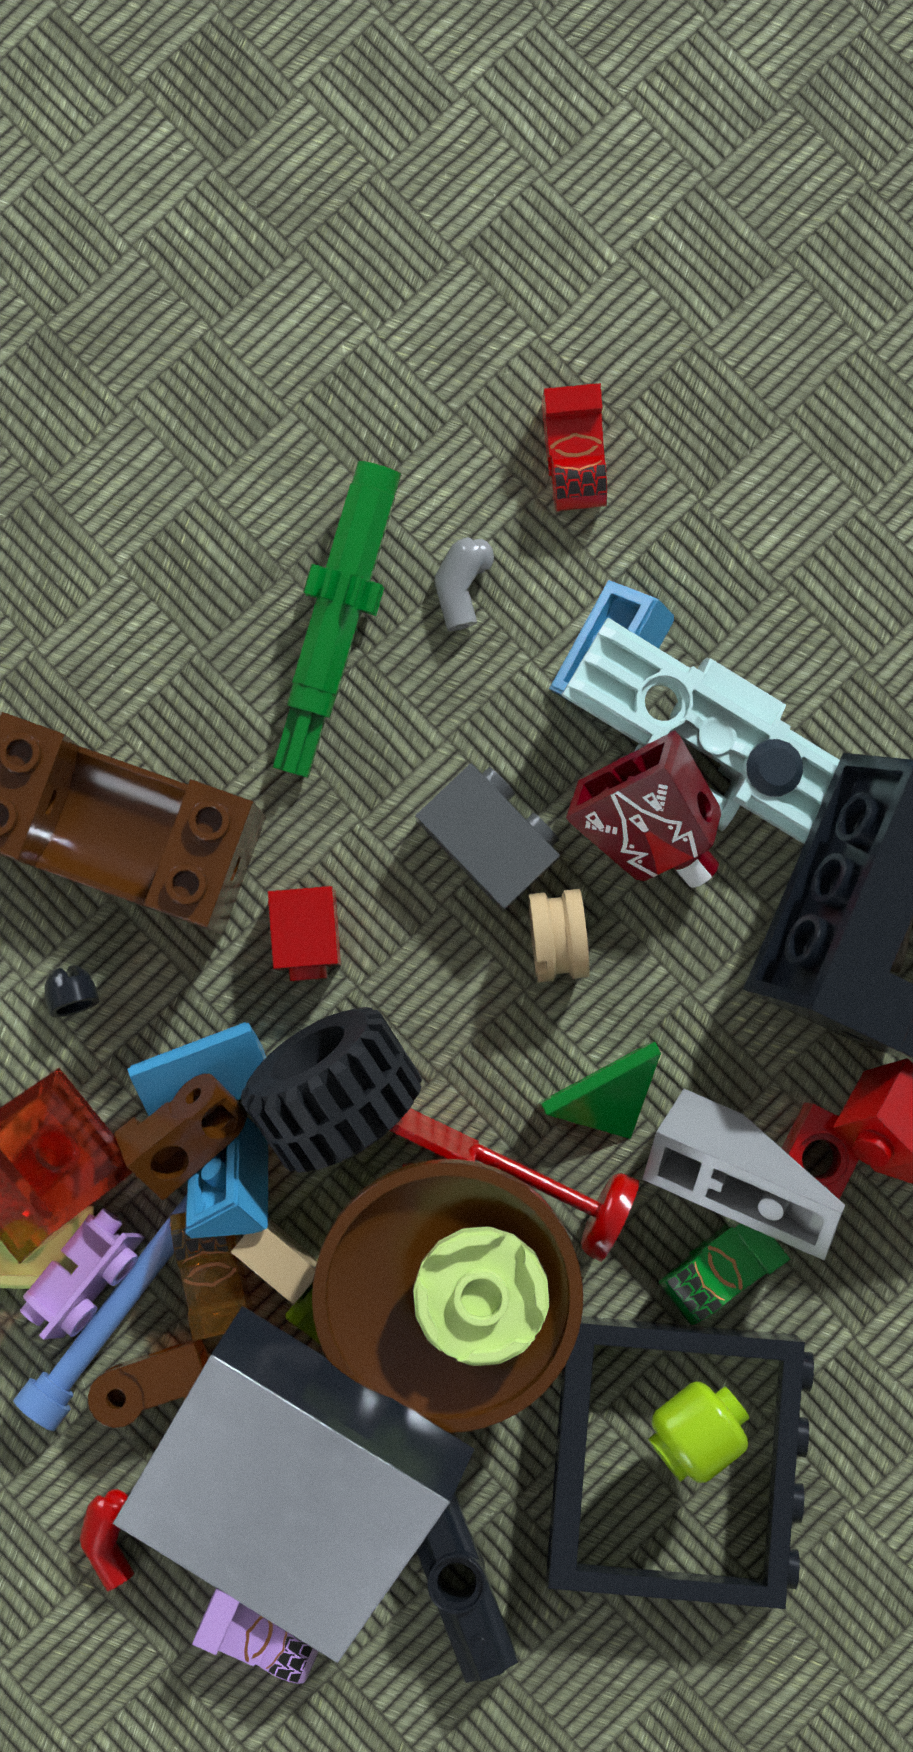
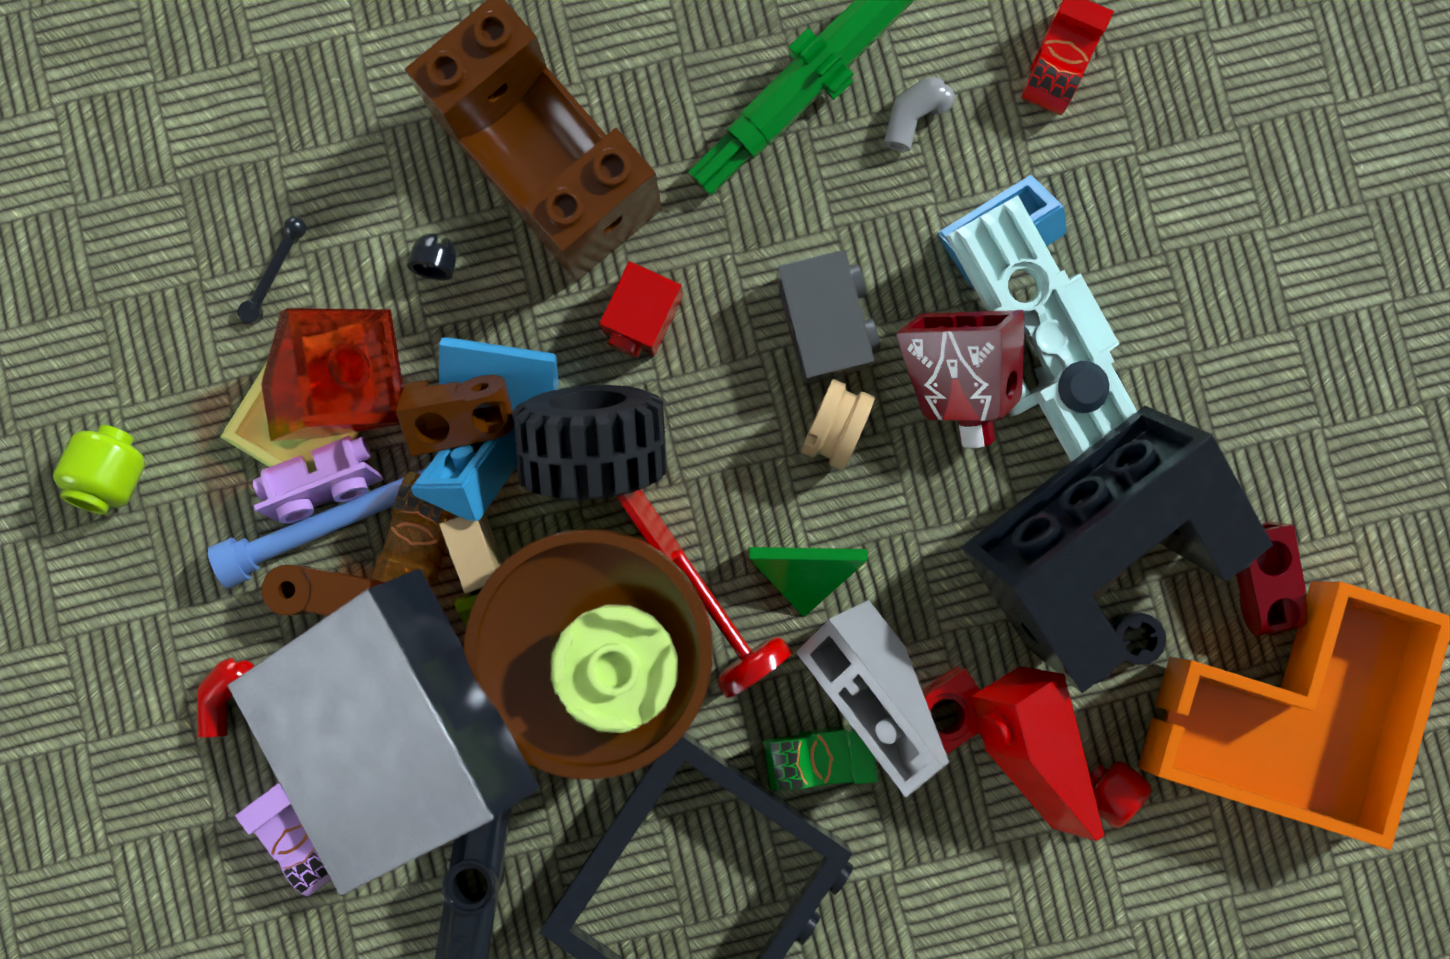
camera: 25 degrees right, 0 degrees up
(699, 1432) = (728, 878): lime head -> none

